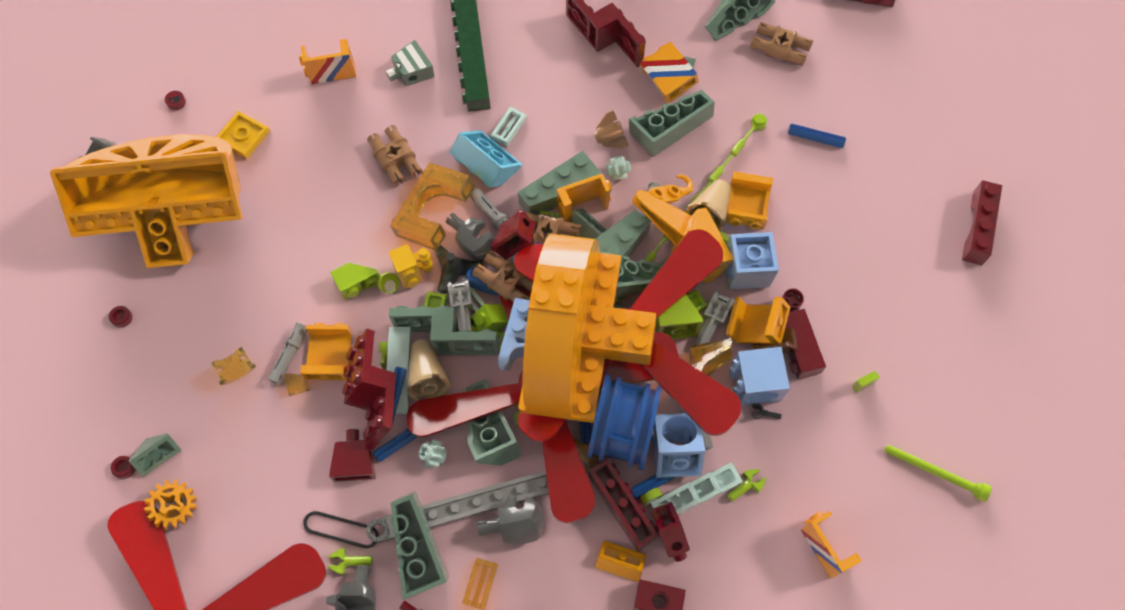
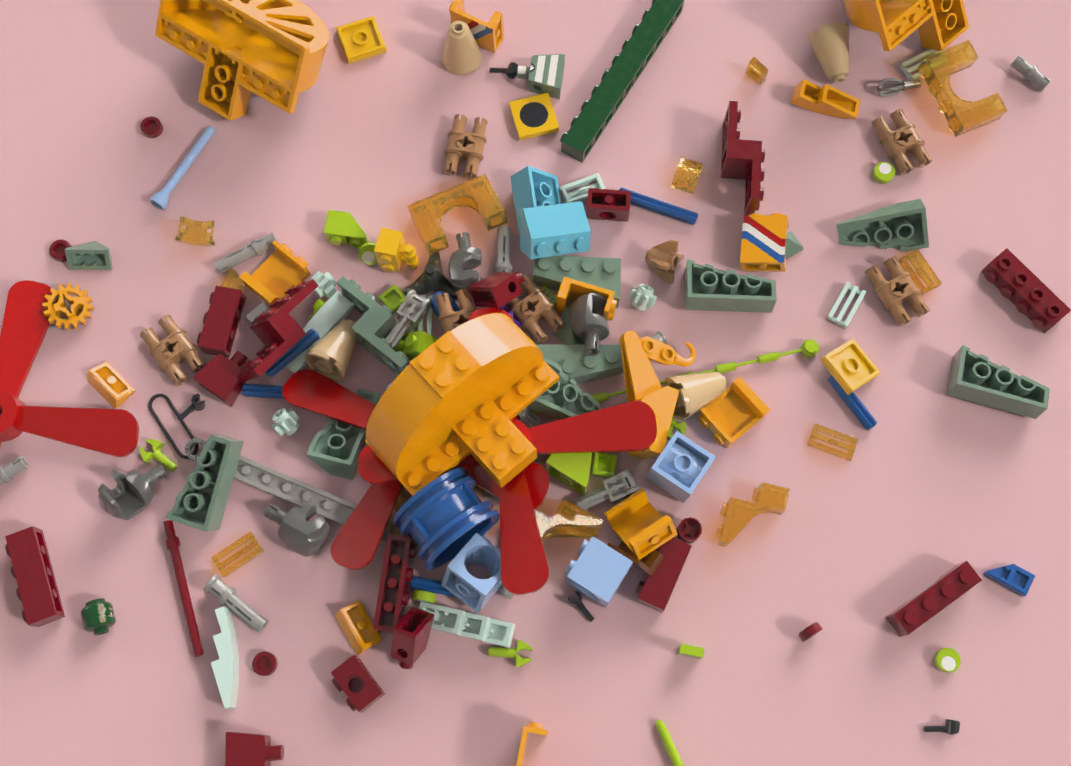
camera: 40 degrees right, 5 degrees up
(178, 364) = (161, 198): none -> light blue piece
(259, 539) = (110, 384): none -> light orange slope
(287, 461) = (165, 357): none -> medium nougat pin
(312, 419) = (221, 321): none -> dark red brick
(331, 88) = (461, 50): none -> tan cone
(337, 391) = (260, 308): none -> light grey tile
(345, 502) = (193, 407): none -> black hand
(376, 325) = (325, 284): none -> light aqua gear
(382, 81) = (510, 71): none -> black hand
(427, 100) = (533, 116): none -> yellow tile
(518, 164) = (554, 230): none -> medium azure slope
(538, 121) = (608, 204): none -> dark red brick
(571, 100) = (662, 207): none -> blue axle
(574, 65) = (687, 175): none -> clear yellow piece
(599, 210) = (587, 323): none -> dark grey piece
(753, 63) = (854, 290): none -> light aqua tile
(784, 19) = (922, 269): none -> clear yellow tile
(796, 113) = (850, 366): none -> yellow tile
(814, 263) = (738, 512): none -> clear yellow arch
(842, 166) = (838, 435): none -> clear yellow tile
(892, 60) = (995, 386): none -> sand green wedge
(928, 305) = (810, 631): none -> dark red tile
(1014, 173) = (1012, 577): none -> blue tile
(1023, 256) = (947, 660): none -> lime tile
(1064, 296) = (951, 727): none -> black hand

